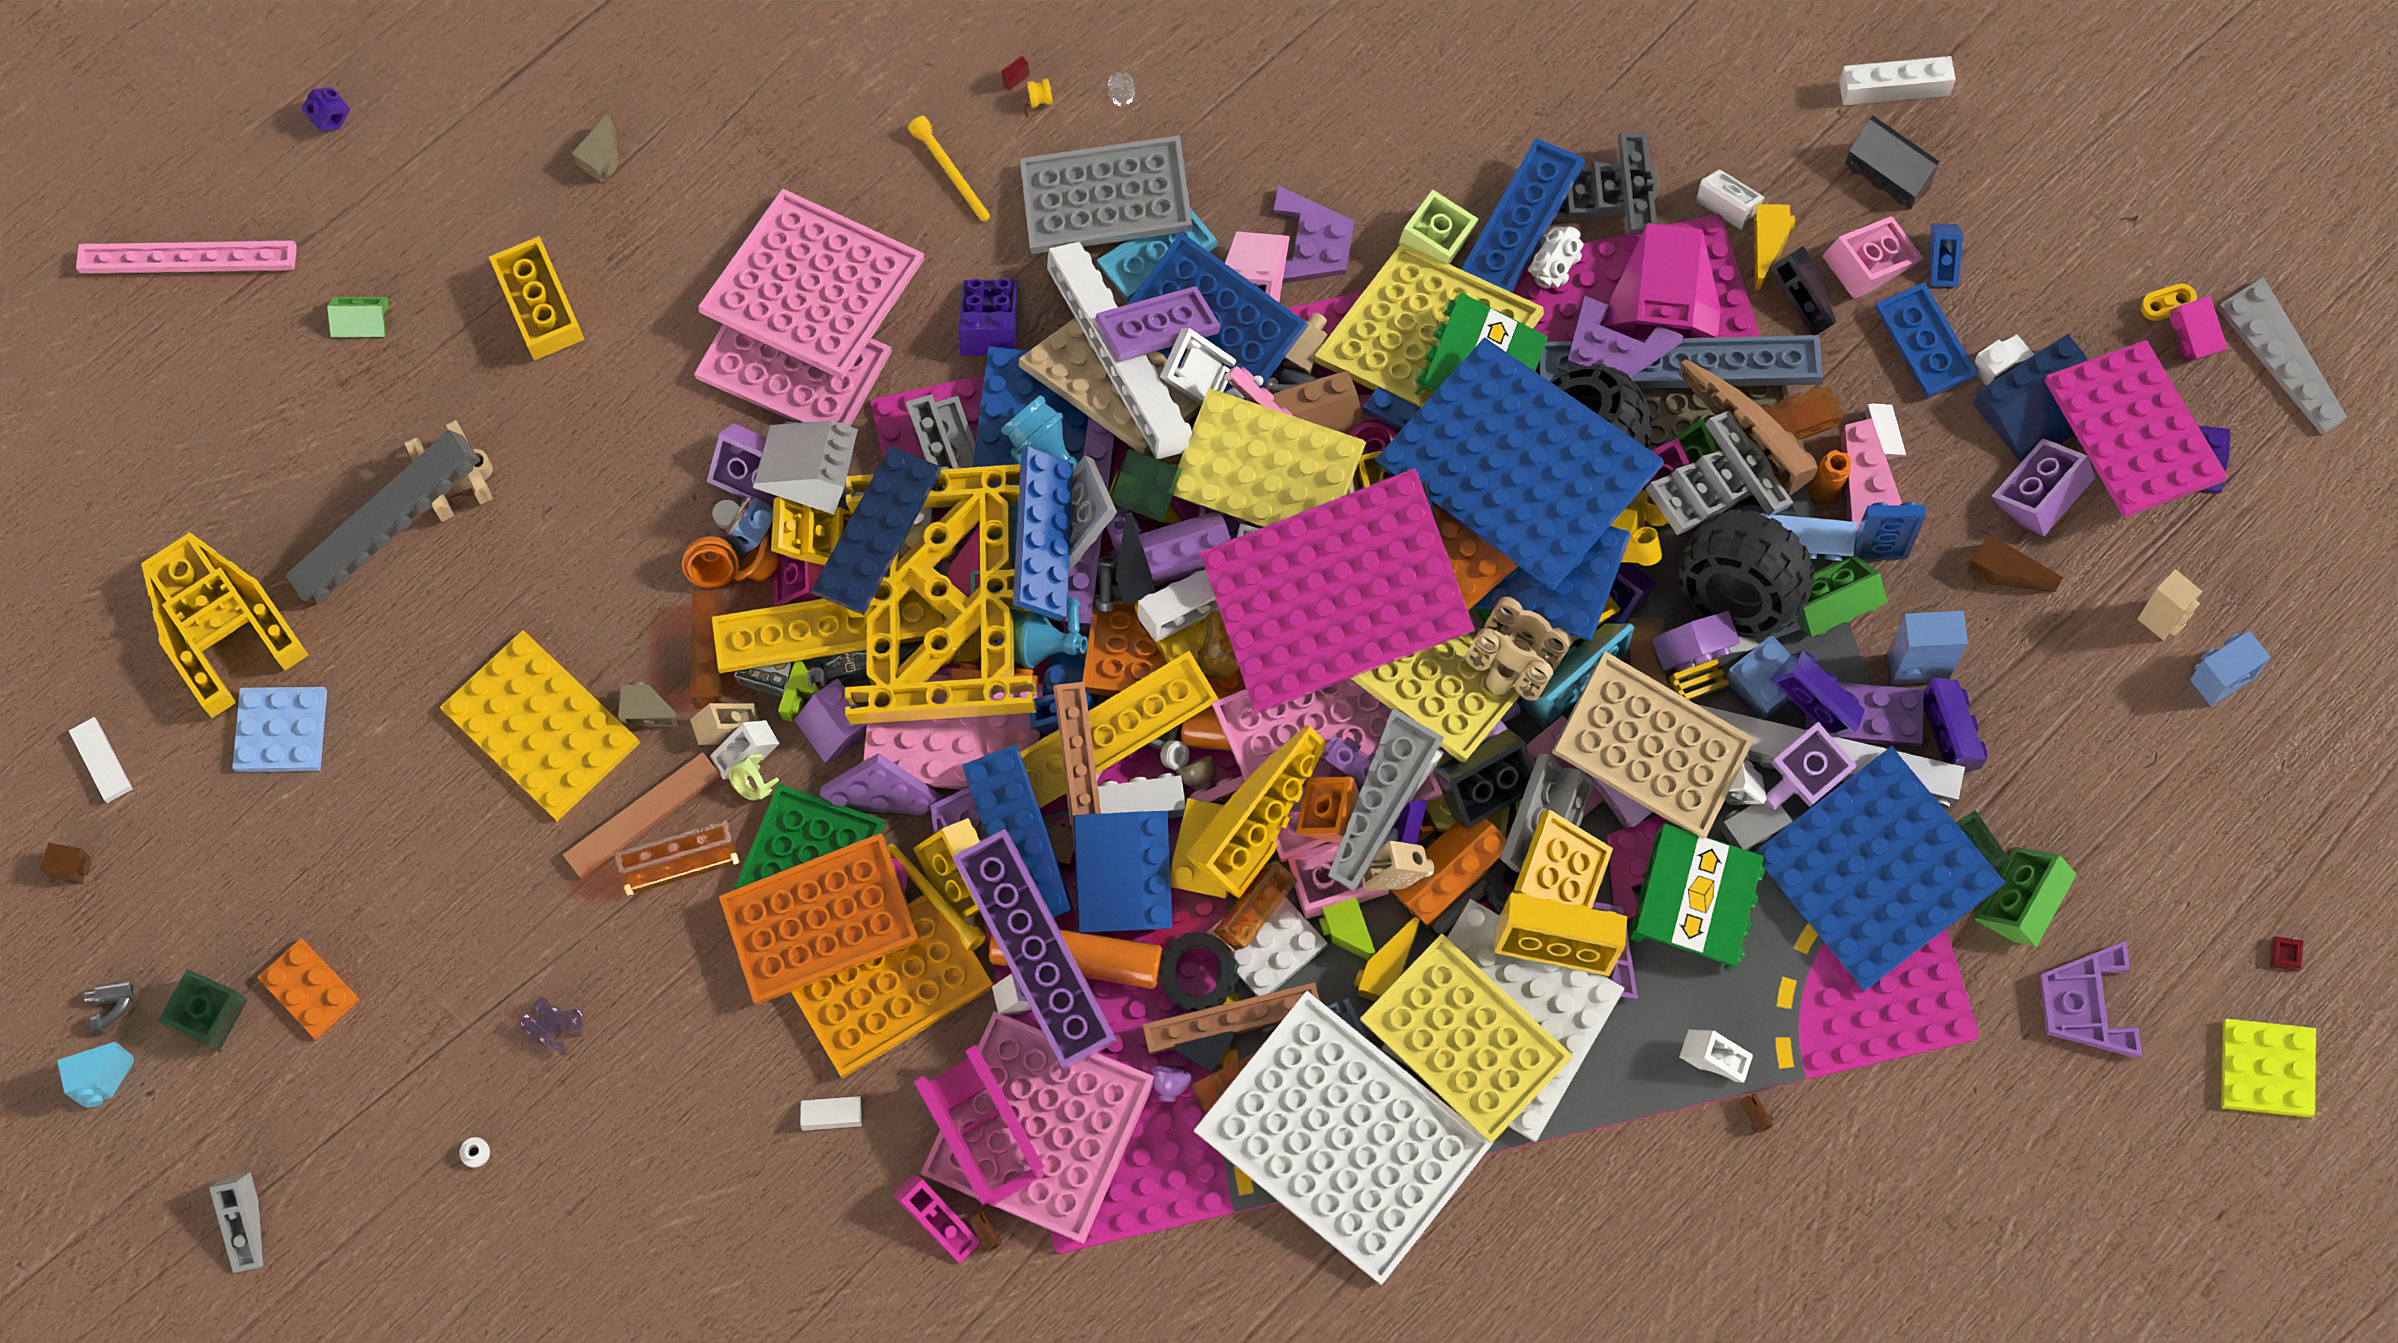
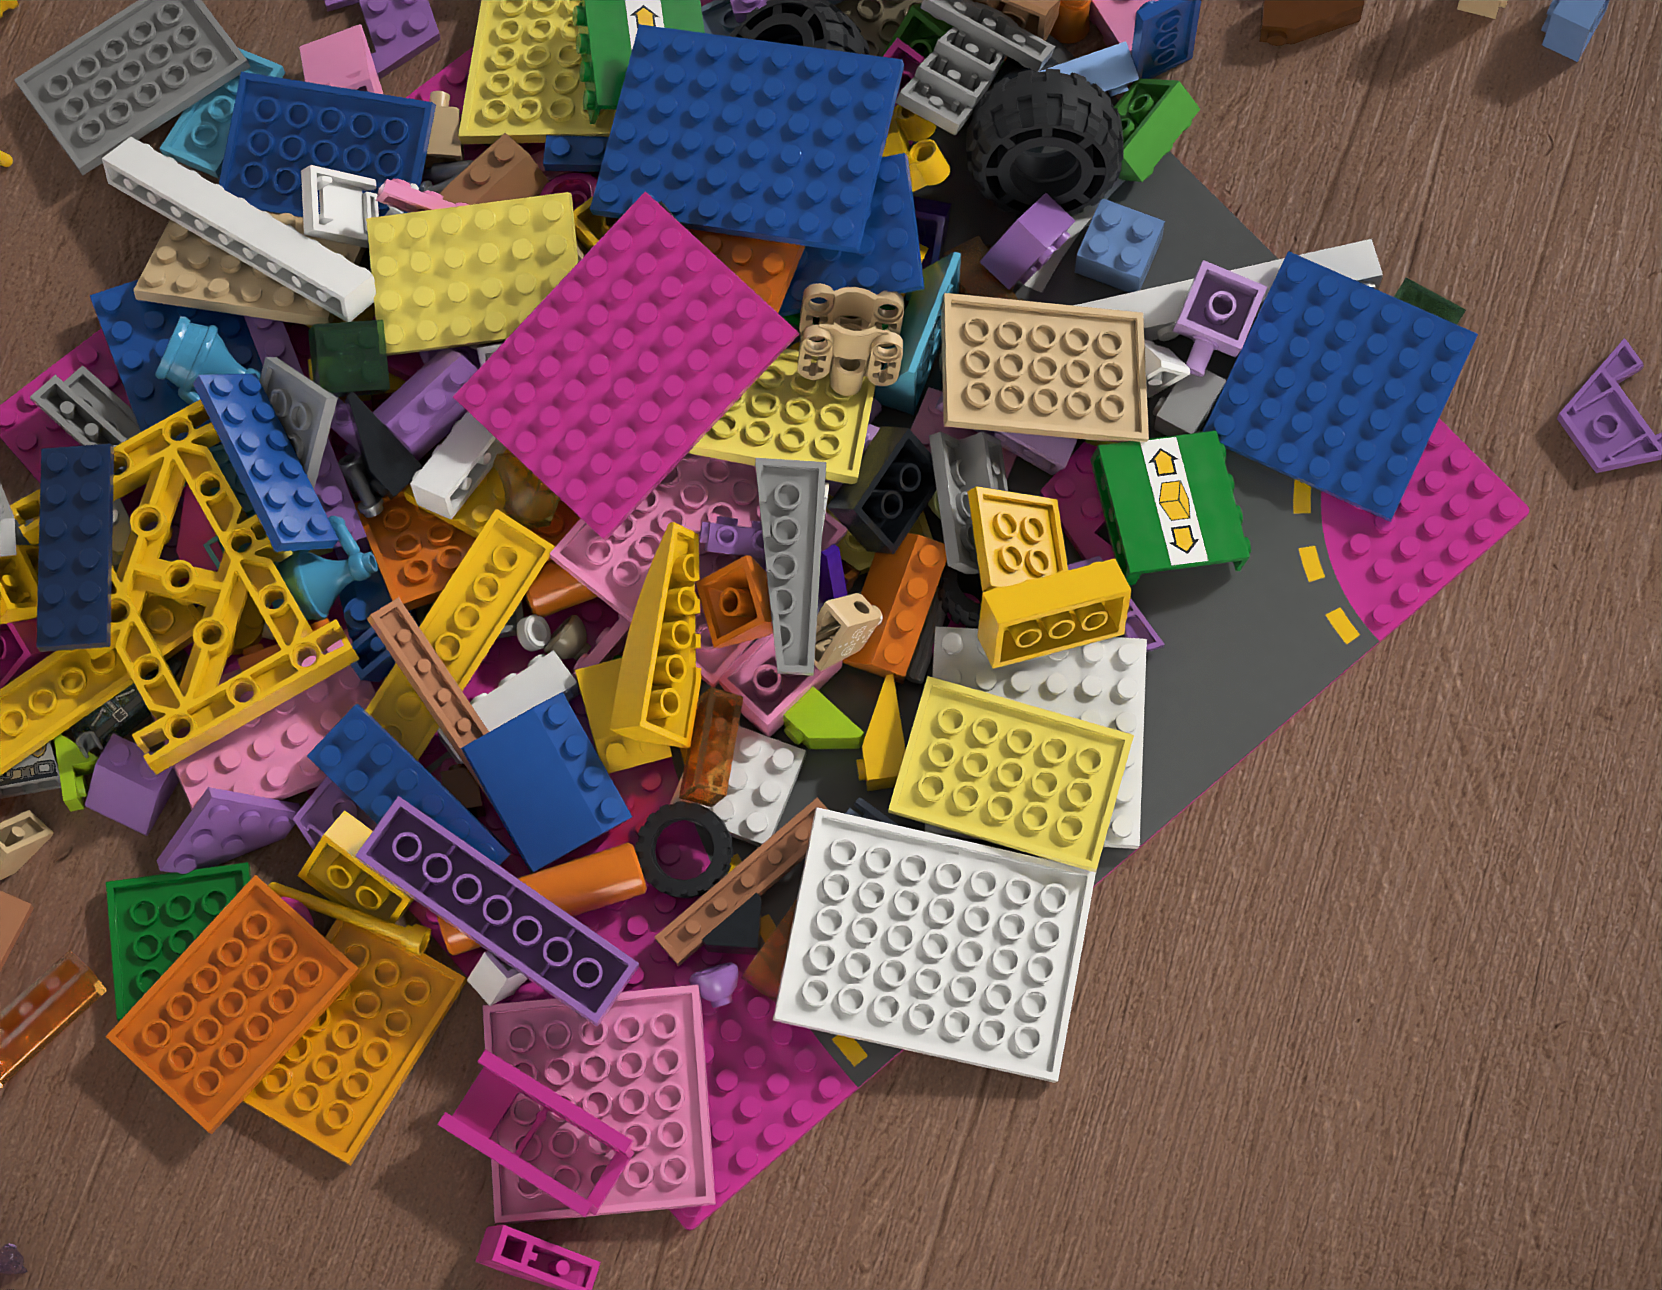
camera: 30 degrees left, 0 degrees up
(738, 777) = (57, 899): yellowish green piece -> none
(746, 740) = (45, 862): white arch -> none
(831, 1113) = (358, 1209): white slope -> none
(982, 1228) = (599, 1249): reddish brown pin -> none
(987, 316) = (69, 264): dark purple slope -> none
(1156, 322) = (267, 179): medium lavender plate -> none
(1715, 674) = (1062, 269): yellow tile -> none
(1716, 1054) = (1276, 660): white arch -> none
(1756, 1112) = (1349, 701): reddish brown pin -> none
(1819, 694) = (1184, 234): dark purple slope -> none
(1889, 716) = (1239, 232): medium lavender plate -> none
(1926, 647) = (1269, 134): medium blue brick -> none
(1953, 725) = (1332, 203): dark purple slope -> none
(2029, 897) = (1507, 343): bright green slope -> none

